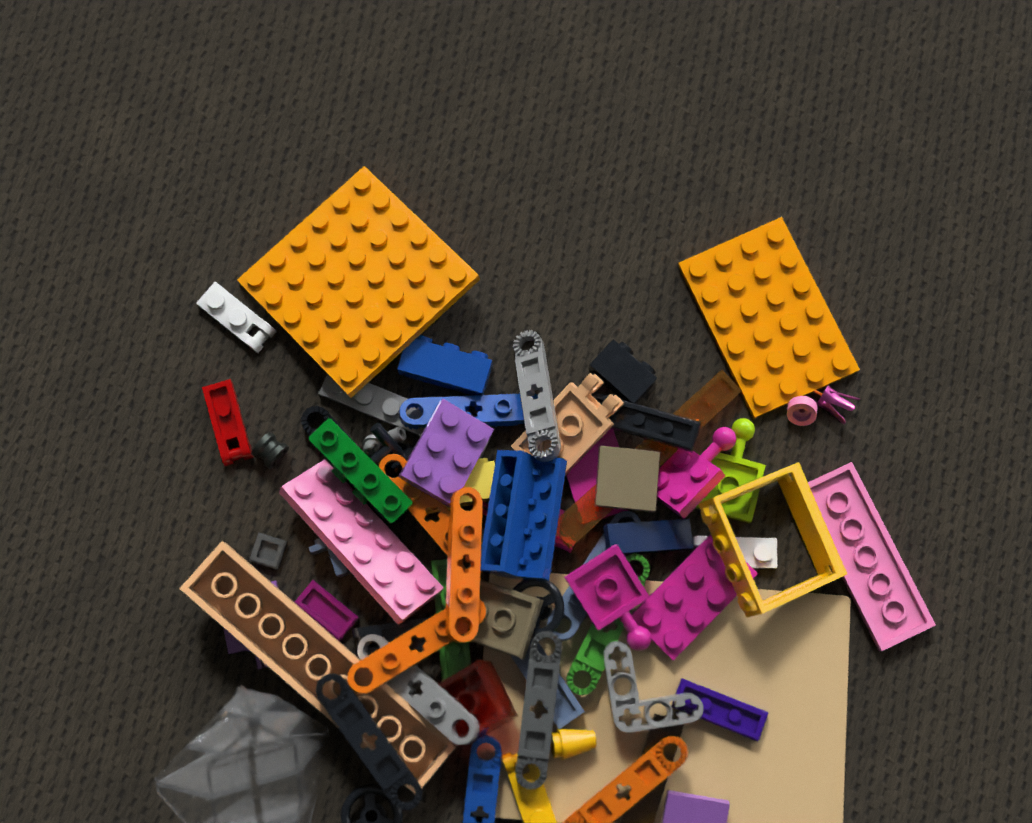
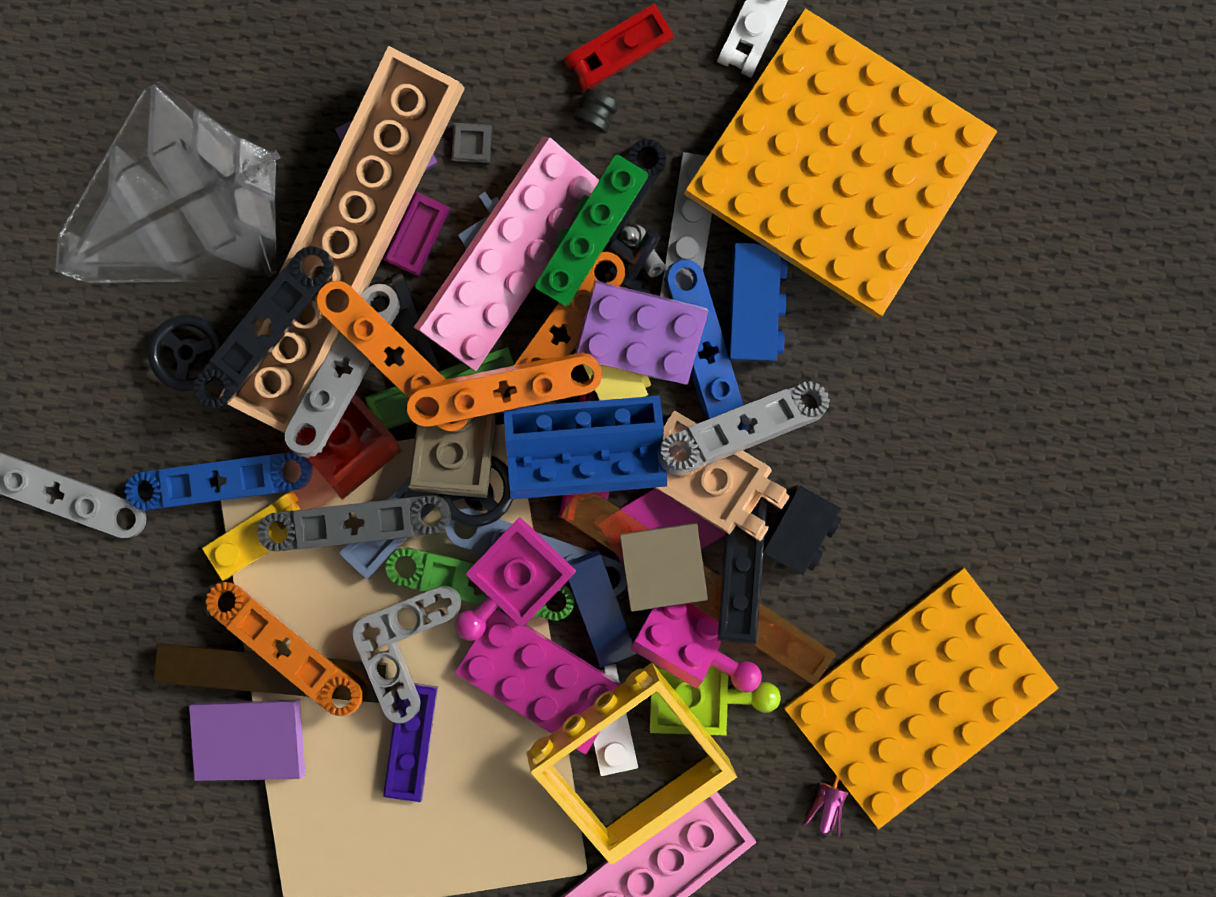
camera: 75 degrees right, 10 degrees up
(568, 743) = (327, 571): yellow cone -> none
(802, 410) = (807, 766): bright pink tile -> none

